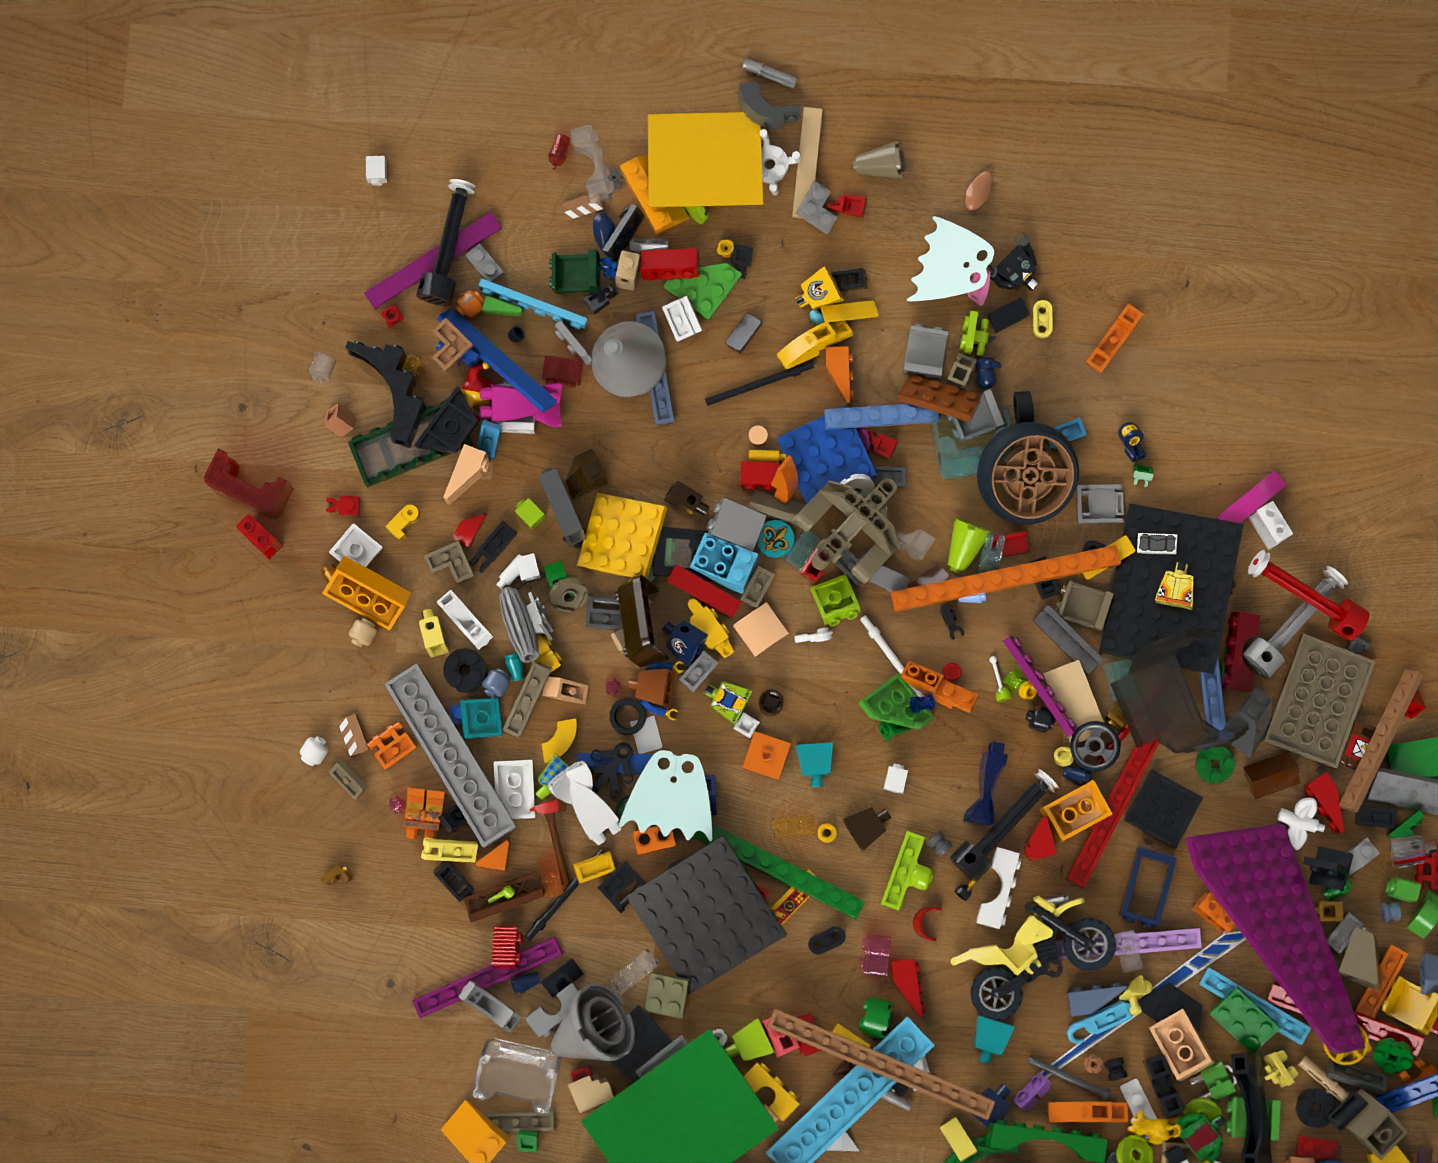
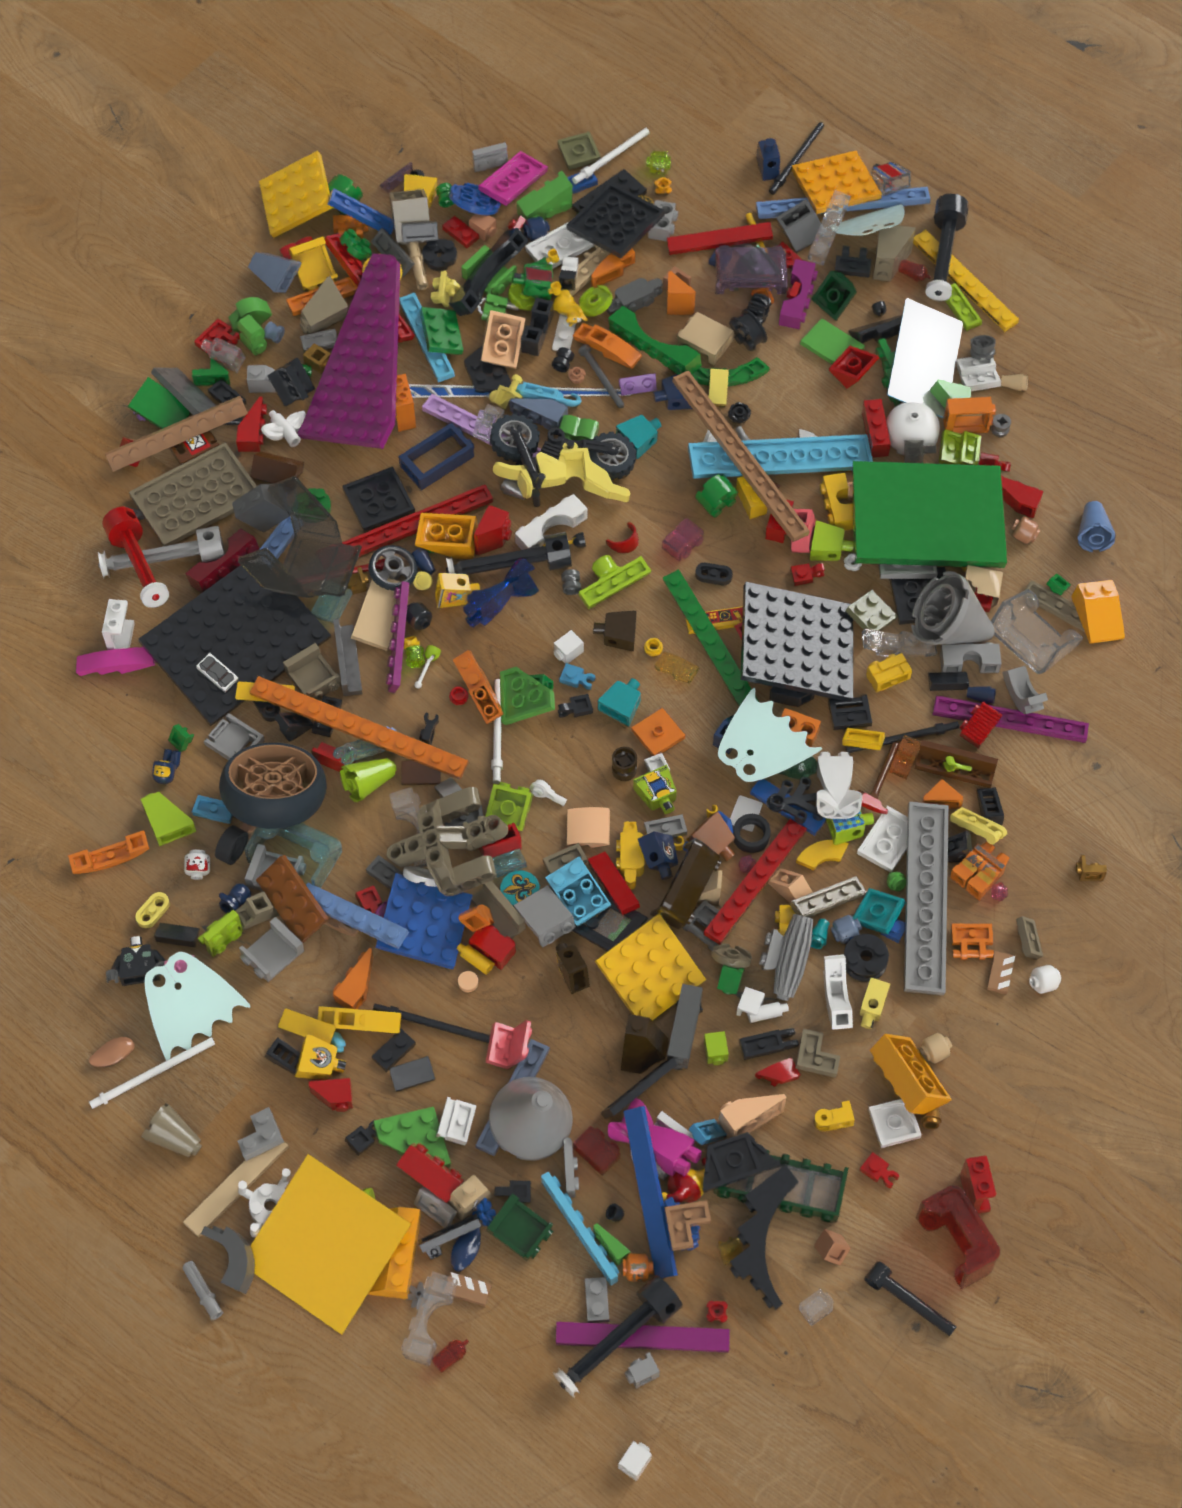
camera: 145 degrees left, 20 degrees down
(290, 421) = (880, 1277): none -> black piece
(414, 234) = (642, 1371): none -> light grey brick
(485, 756) = (896, 881): none -> bright green plate
(563, 434) = (638, 1088): none -> black tile
(594, 674) = (754, 882): none -> red plate
(615, 947) = (888, 672): none -> yellow brick
(687, 403) = (508, 1044): none -> coral bracket
(725, 243) = (368, 1153): yellow plate -> none
(752, 997) = (804, 574): none -> red plate
(772, 342) = (393, 1050): none -> black plate
(788, 275) = (333, 1093): none -> red slope
(846, 732) = (577, 705): none -> black plate
(849, 205) = (230, 1120): red slope -> none
(872, 758) = (575, 675): none -> dark azure plate
(905, 978) = (672, 509): red slope -> none
(922, 703) = (502, 682): clear blue bush -> none
(927, 1127) = (739, 408): none -> black plate
(955, 156) = (105, 1097): none -> white bar
(1034, 757) = (453, 589): none -> yellow torso
(1039, 378) = (197, 864): none -> white head
(1045, 1002) = (578, 428): none -> bright green brick
(1063, 544) = (293, 724): none -> black slope
(1096, 398) = (166, 819): none -> lime slope
(1177, 588) = (232, 625): torso -> none

